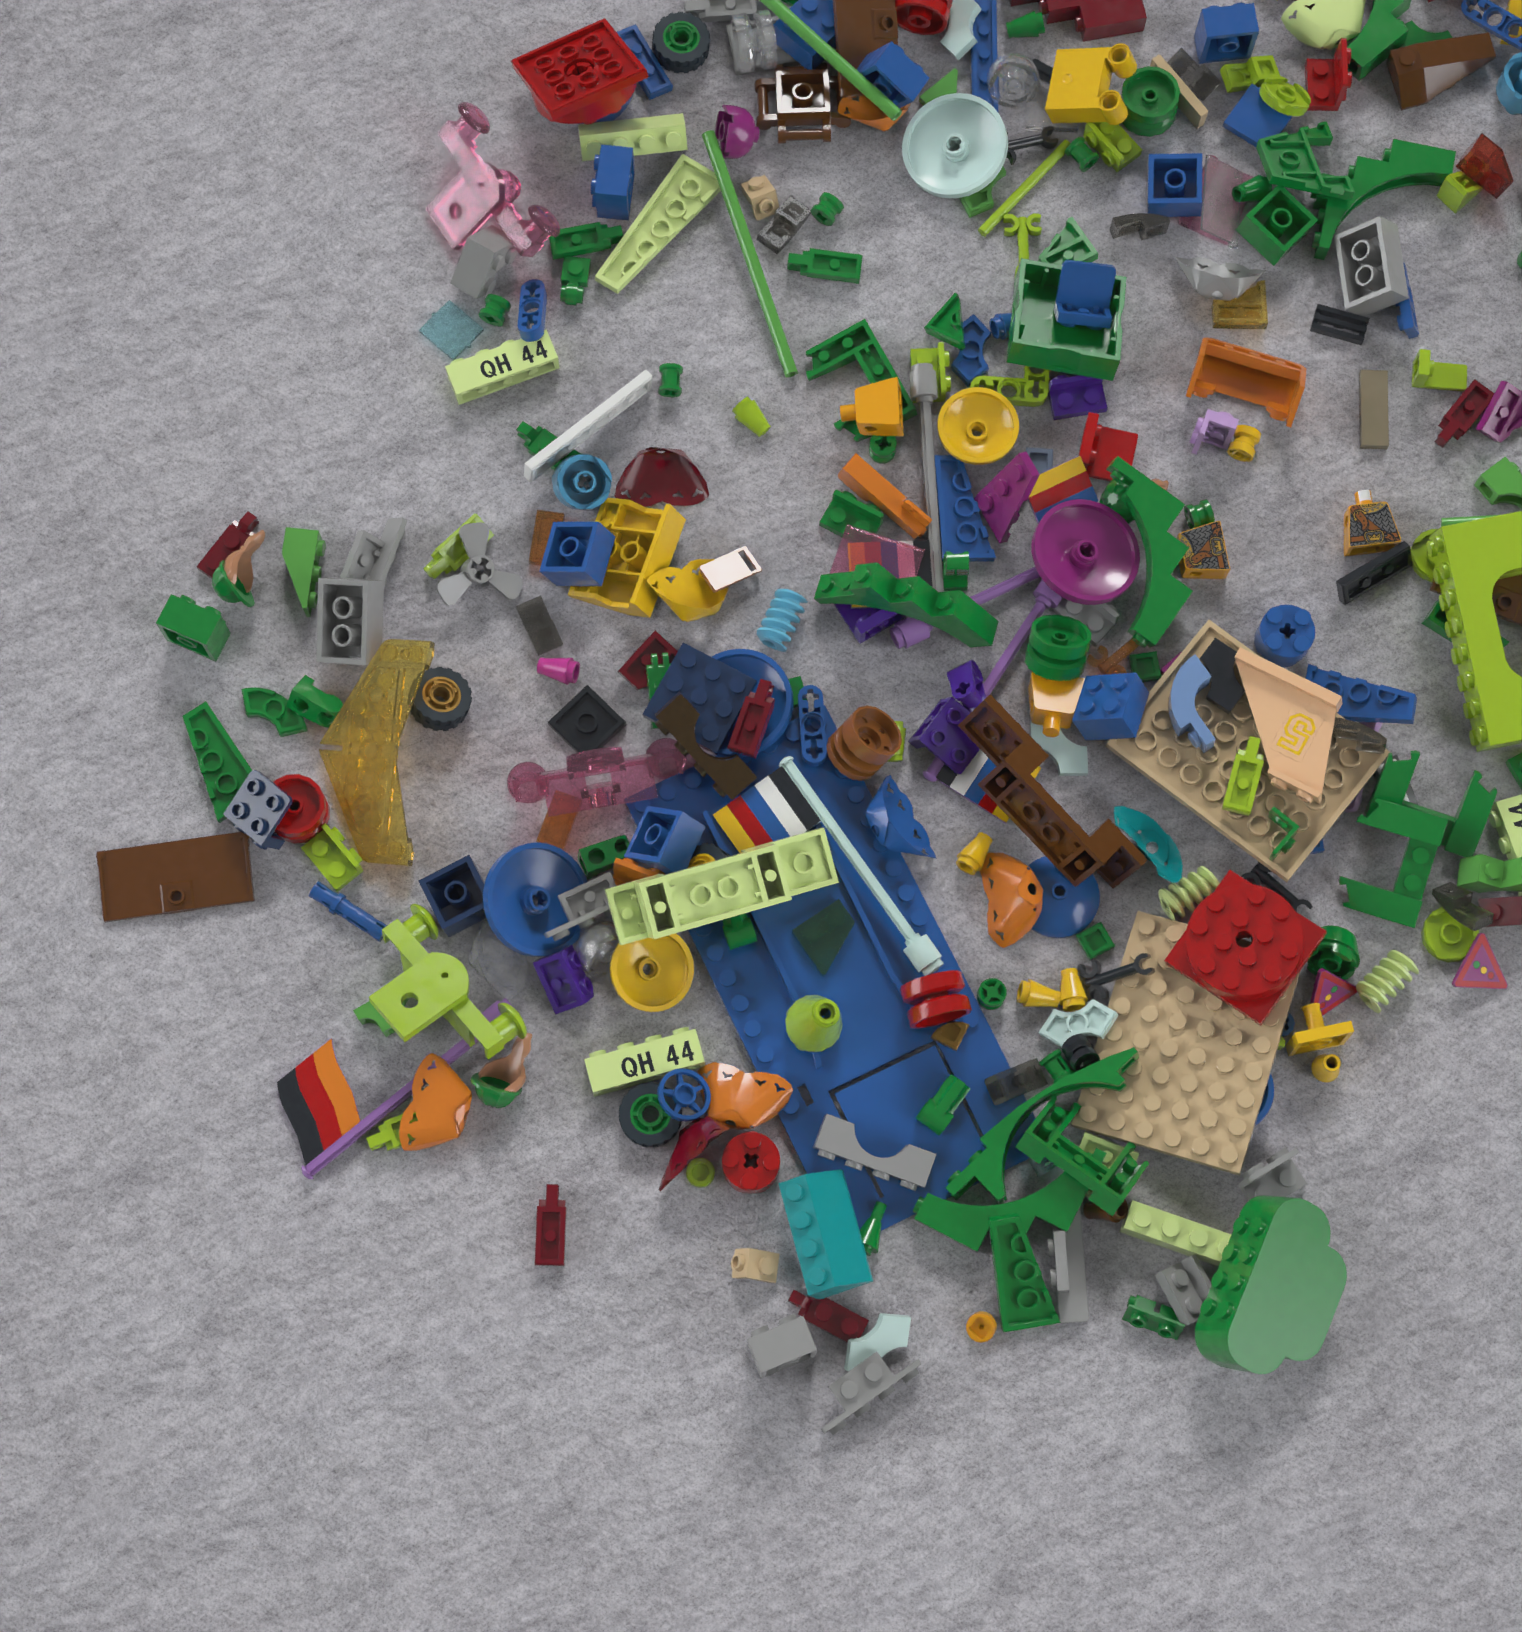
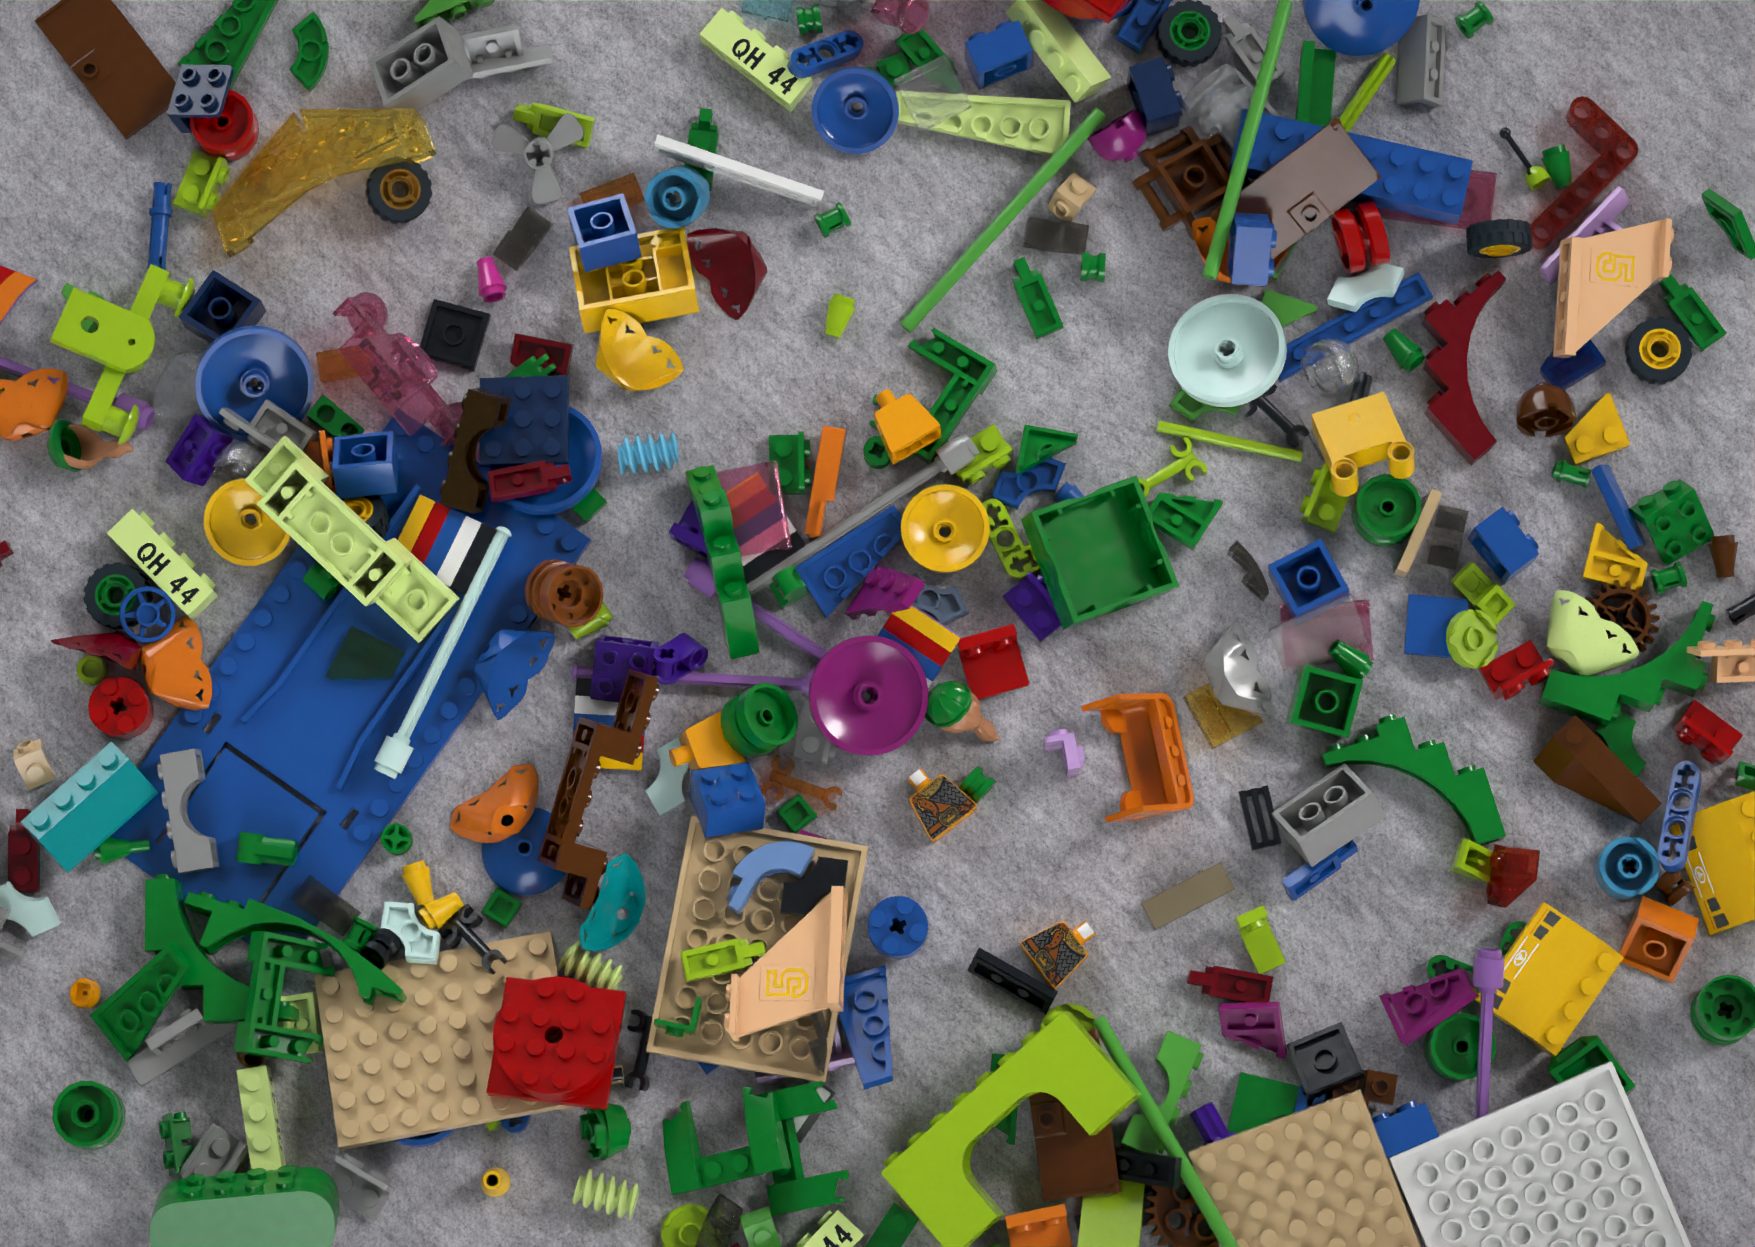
camera: 65 degrees right, 5 degrees up
(314, 703) = (332, 82): green leg -> none
(608, 309) = (853, 129): none -> blue dish
(615, 248) = (932, 93): none -> clear tile
(717, 84) = (1154, 95): none -> dark blue brick
(728, 570) = (672, 378): piece -> none
(808, 1028) = (289, 692): lime cone -> none
(820, 717) = (560, 525): blue beam -> none
(935, 999) = (352, 787): red wheel -> none
(950, 1034) = (335, 822): pearl gold tile -> none
(974, 854) = (520, 752): yellow cone -> none
(1082, 154) = (1295, 476): green bush -> none
(1084, 294) = (1131, 556): blue bracket -> none
(1110, 1376) = (71, 1112): none -> green wheel
(1154, 513) = (938, 738): green arch -> none
(1243, 445) = (1076, 789): yellow wheel -> none
(1292, 164) = (1397, 679): green wing -> none
(1318, 1035) = (517, 1154): yellow tile -> none
(1330, 990) = (565, 1146): piece -> none

